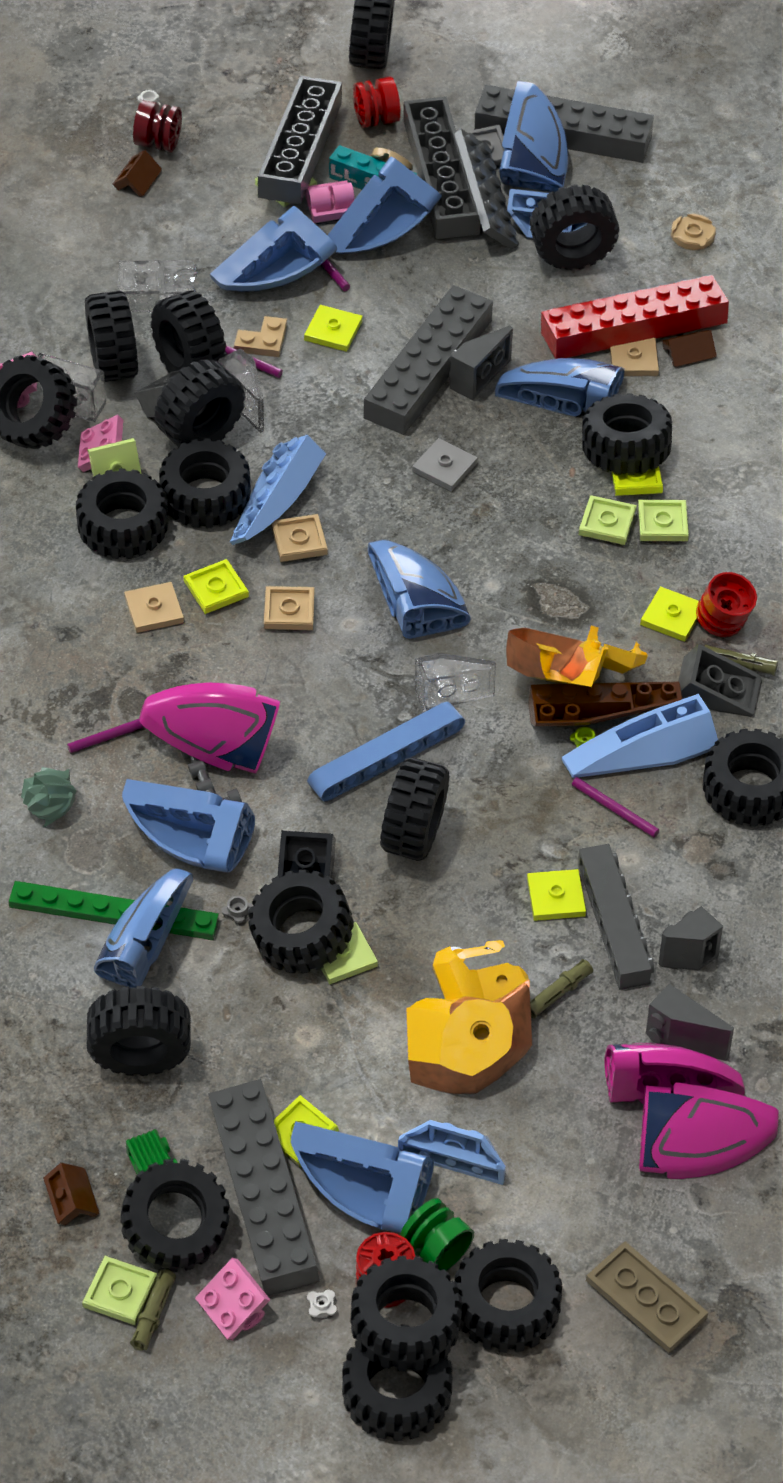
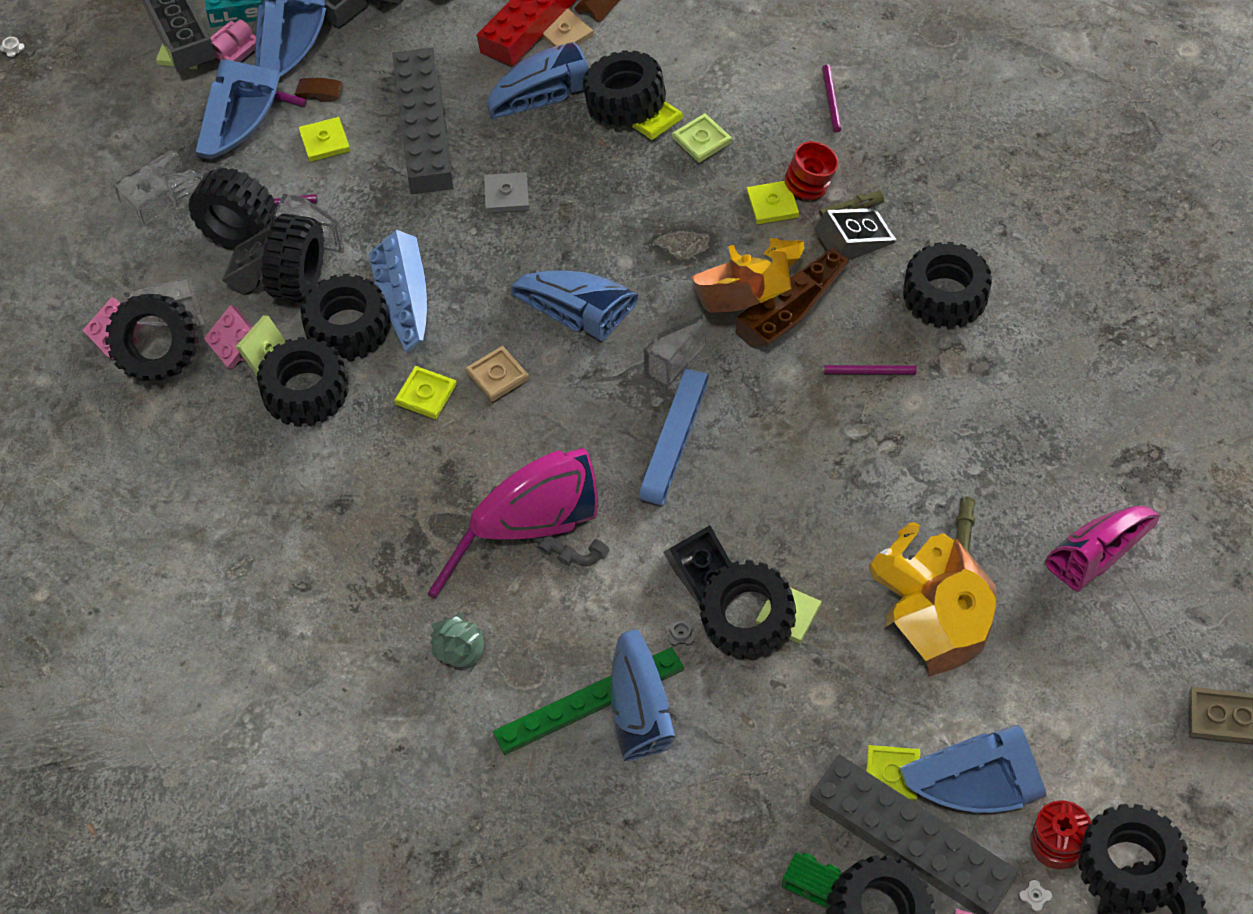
camera: 35 degrees left, 5 degrees up
(111, 335) = (169, 243): black tyre -> none
(138, 173) = (55, 107): reddish brown panel -> none
(138, 1030) = (720, 783): black tyre -> none
(154, 607) = (391, 439): tan plate -> none
(157, 126) = (43, 61): dark red wheel -> none
(191, 823) = (589, 592): medium blue panel -> none
(266, 342) = (282, 178): tan plate -> none
(299, 538) = (453, 314): tan plate -> none
(370, 282) = (322, 88): none -> reddish brown slope
(414, 809) = (754, 464): black tyre -> none
(438, 1234) = (1073, 781): green wheel -> none
(455, 1150) = (1017, 704): light blue wedge -> none
(480, 361) = (464, 101): dark grey slope -> none
(516, 1264) = (1173, 762): black tyre -> none
(556, 895) = (893, 462): neon yellow plate -> none
(581, 734) = (802, 328): lime plate -> none
(607, 520) = (663, 161): yellowish green plate -> none
(615, 916) = (951, 450): dark grey brick -> none
(647, 741) = (851, 306): light blue wedge -> none
(684, 1023) = (1082, 495): dark grey slope -> none
(691, 941) = (1025, 431): dark grey slope -> none
(701, 1130) = (1158, 570): dark pink panel -> none

